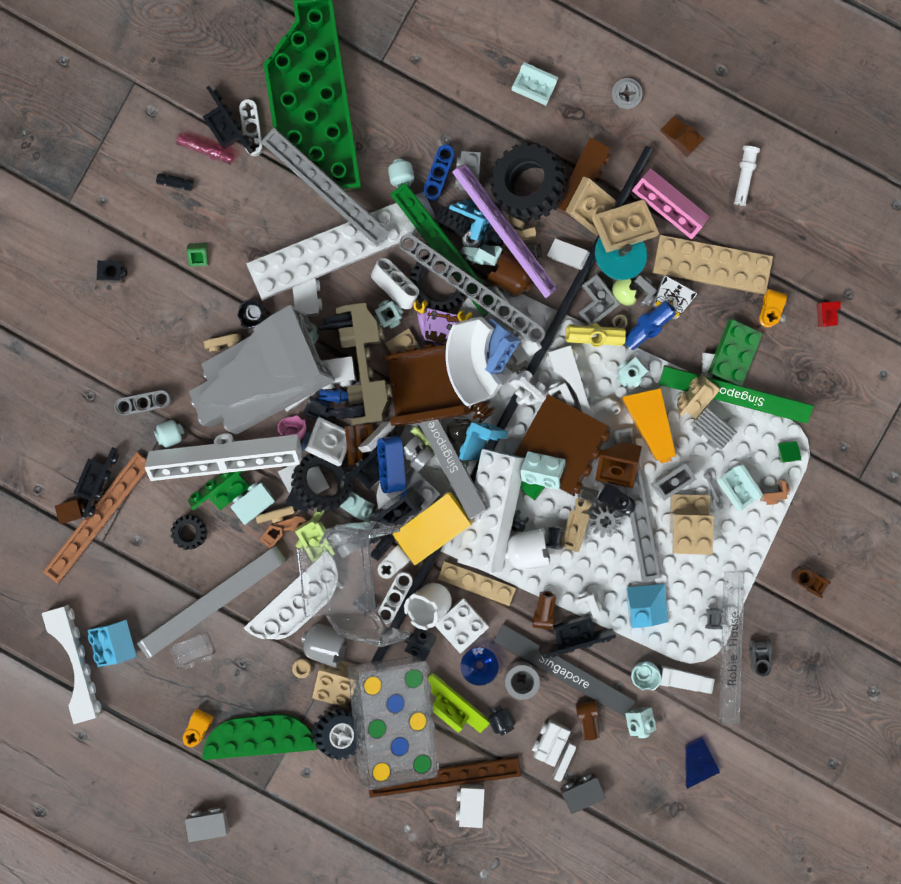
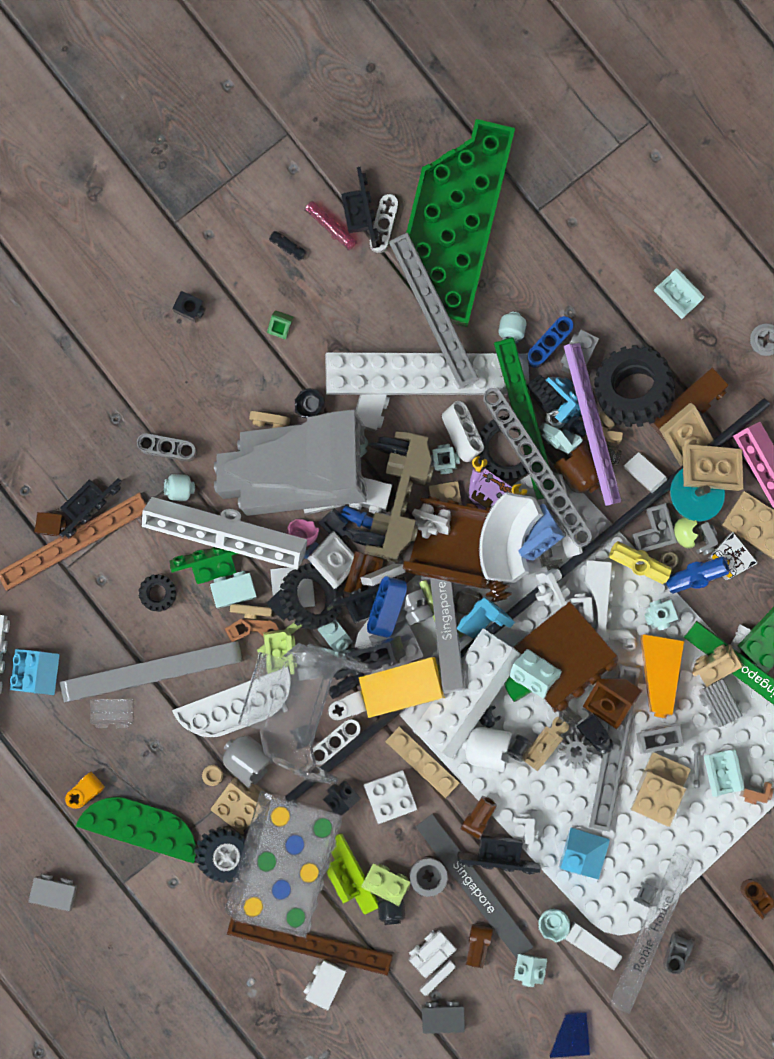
camera: 20 degrees right, 5 degrees down
(399, 375) = (431, 523): none -> white hips
(428, 605) = (365, 762): white cylinder -> none
(483, 675) = (402, 848): clear blue dish -> none
(488, 701) = (386, 884): none -> yellowish green bracket

